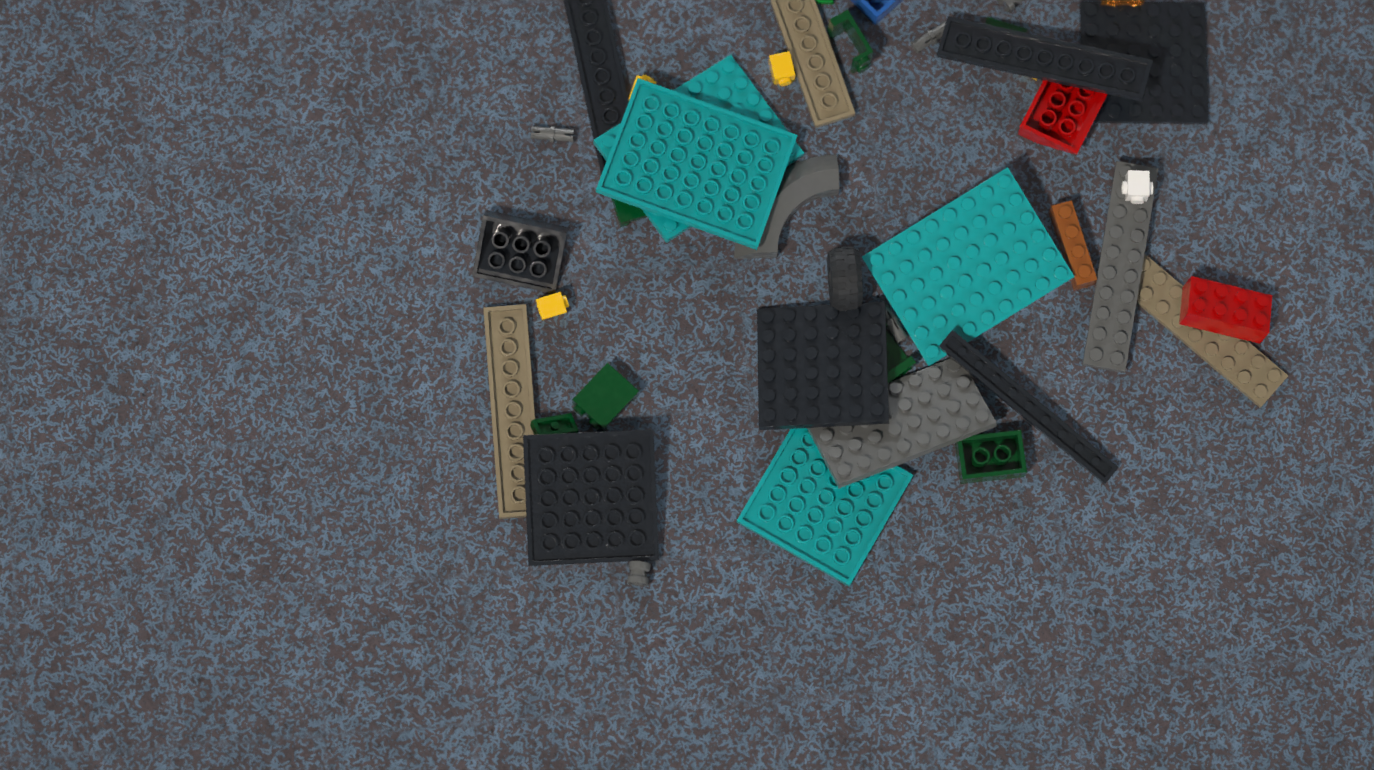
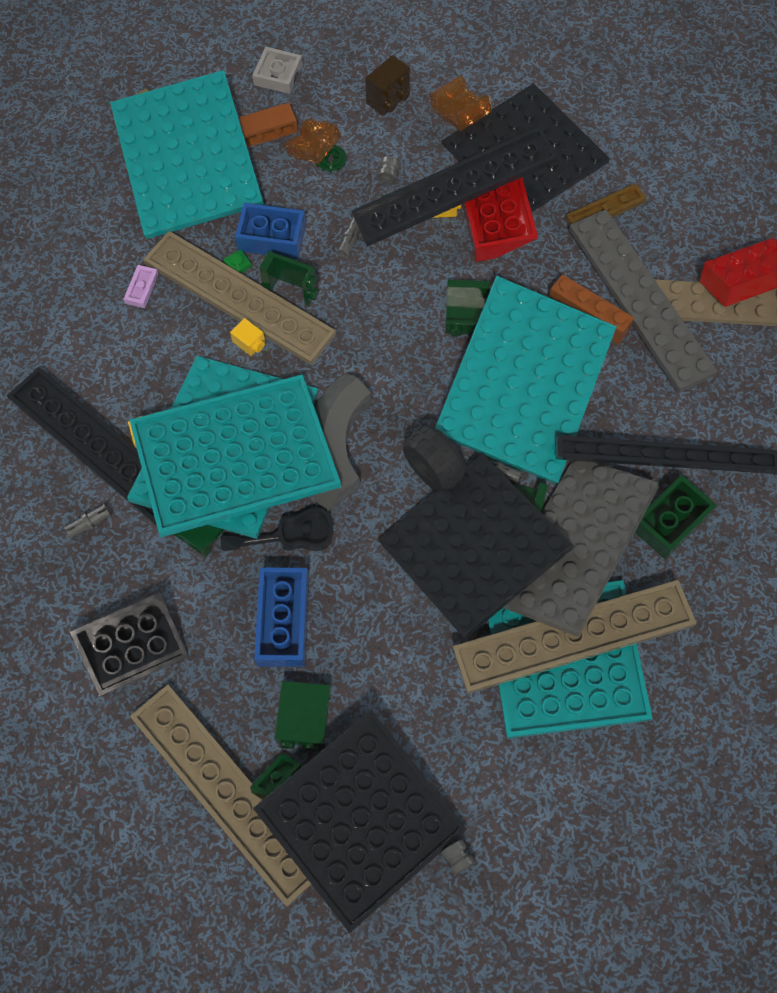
camera: 30 degrees left, 10 degrees down
(552, 305) = (193, 668): yellow brick -> none
(642, 315) = (282, 617): none -> blue brick
(710, 262) = (307, 531): none -> black piece
(867, 498) = (541, 647): none -> dark tan plate
(974, 167) = (464, 305): none -> dark green panel
(1137, 186) = (605, 227): white brick -> none
(1169, 166) = (614, 204): none -> pearl gold plate

